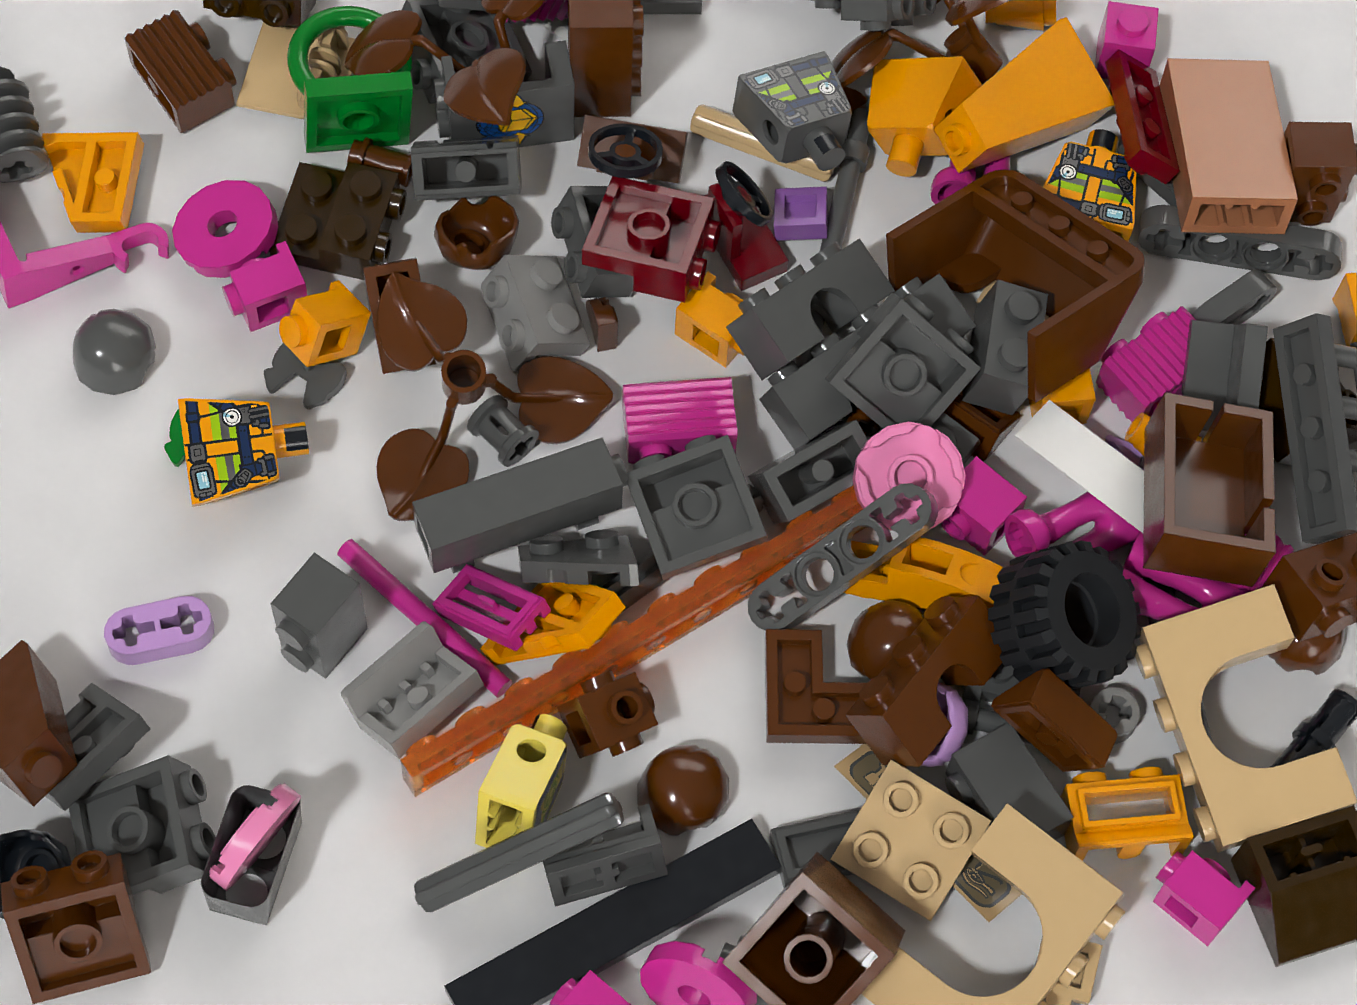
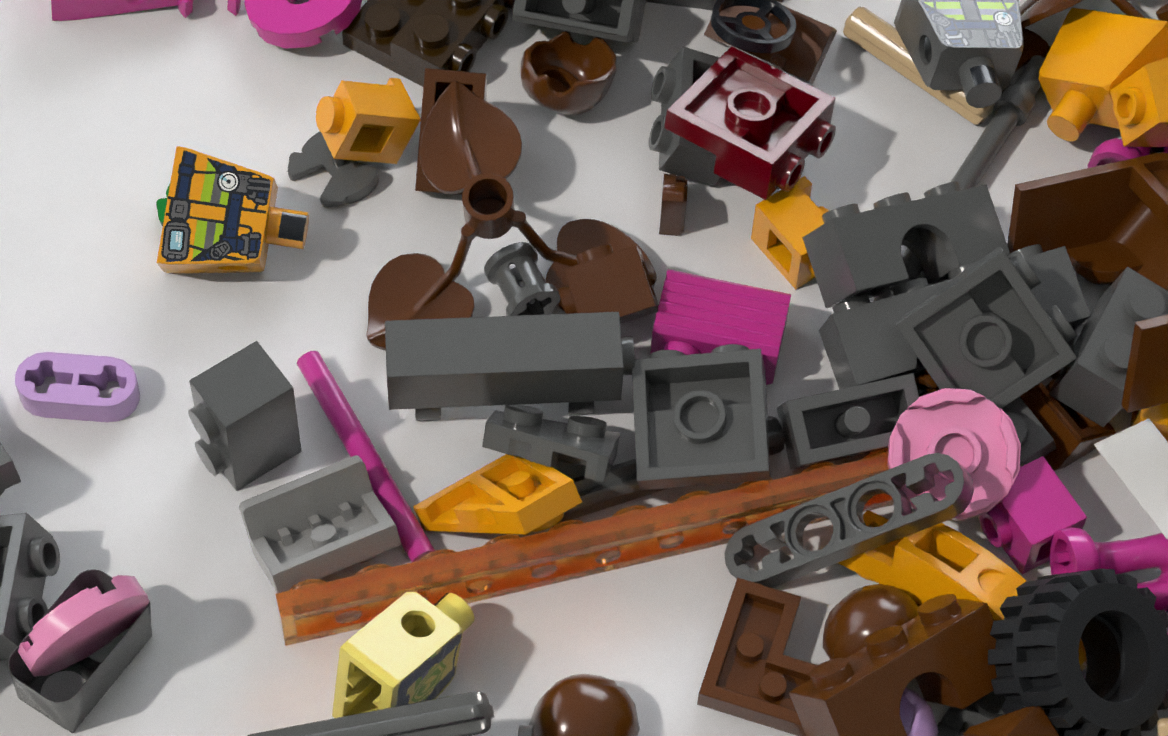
camera: 20 degrees right, 5 degrees down
(113, 351) = (140, 90): dark grey hair -> none
(265, 288) = (318, 65): dark pink brick -> none
(517, 622) = (457, 485): dark pink tile -> none
(533, 309) = (602, 167): light grey bracket -> none
(578, 414) = (609, 284): none -> reddish brown brick
(609, 714) = (526, 616): reddish brown brick -> none
(744, 237) = (861, 147): dark red piece -> none
(801, 213) = (934, 147): medium lavender plate -> none

